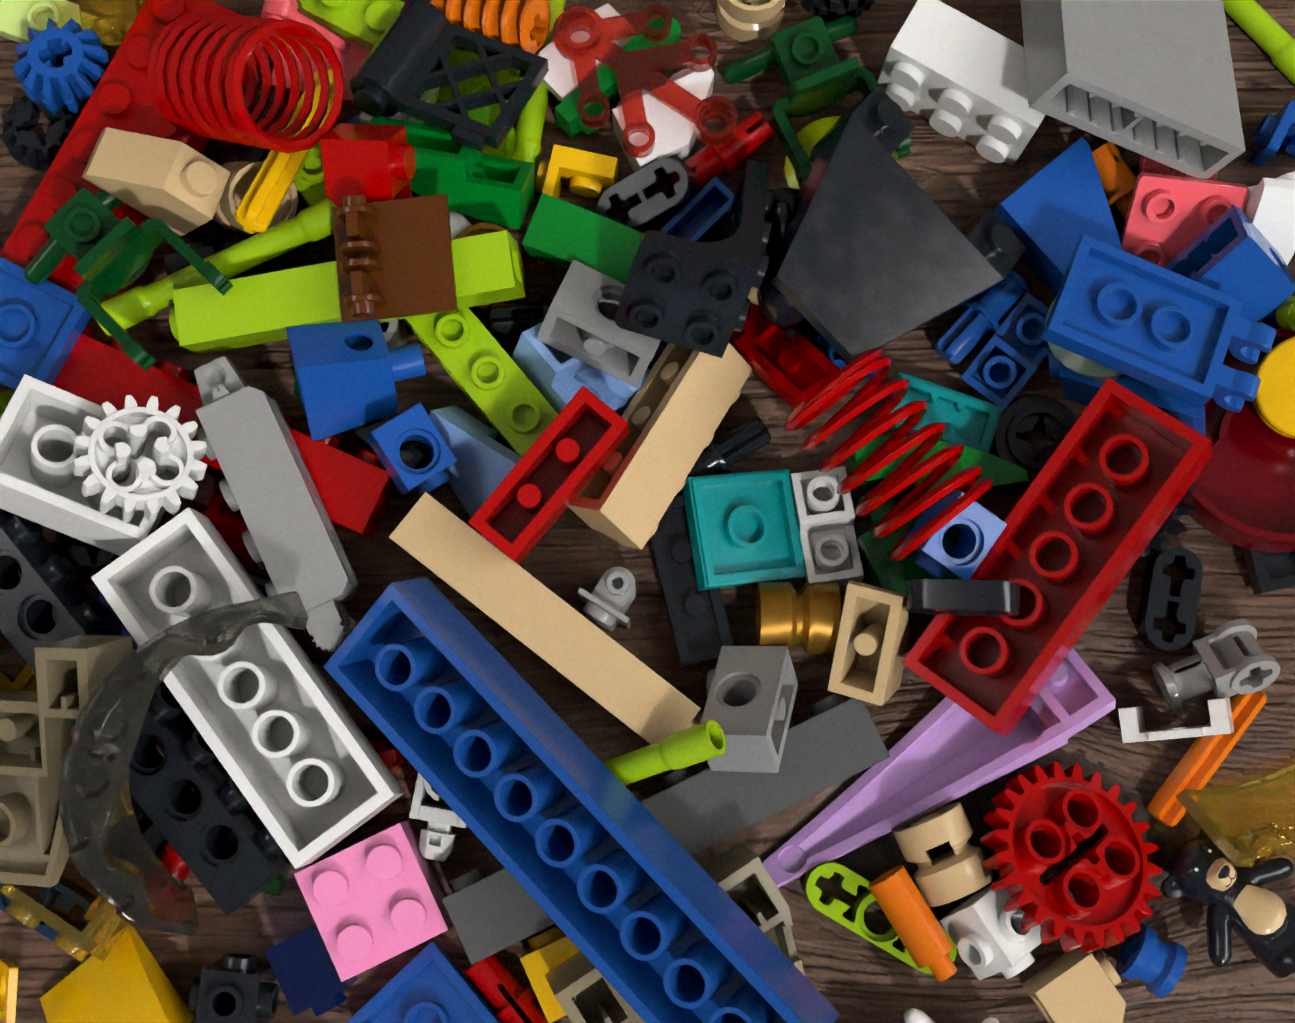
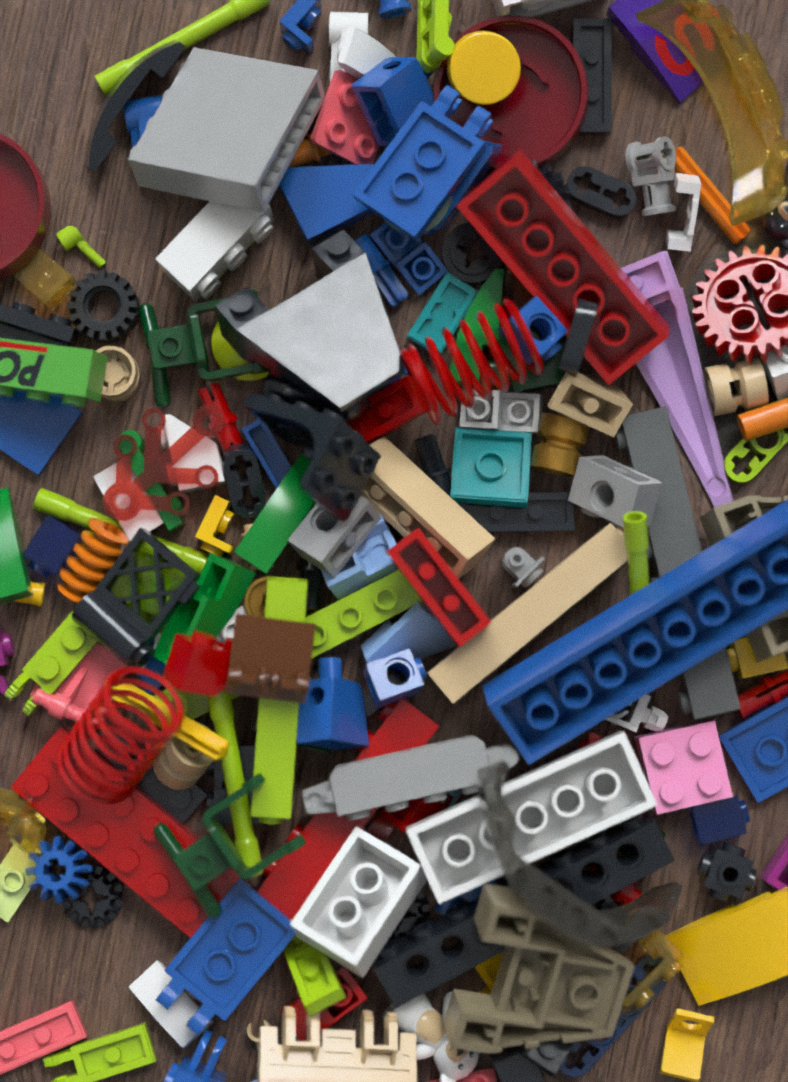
camera: 80 degrees left, 5 degrees up
(157, 177) = (168, 811): tan slope -> none
(170, 452) = (345, 856): white gear -> none

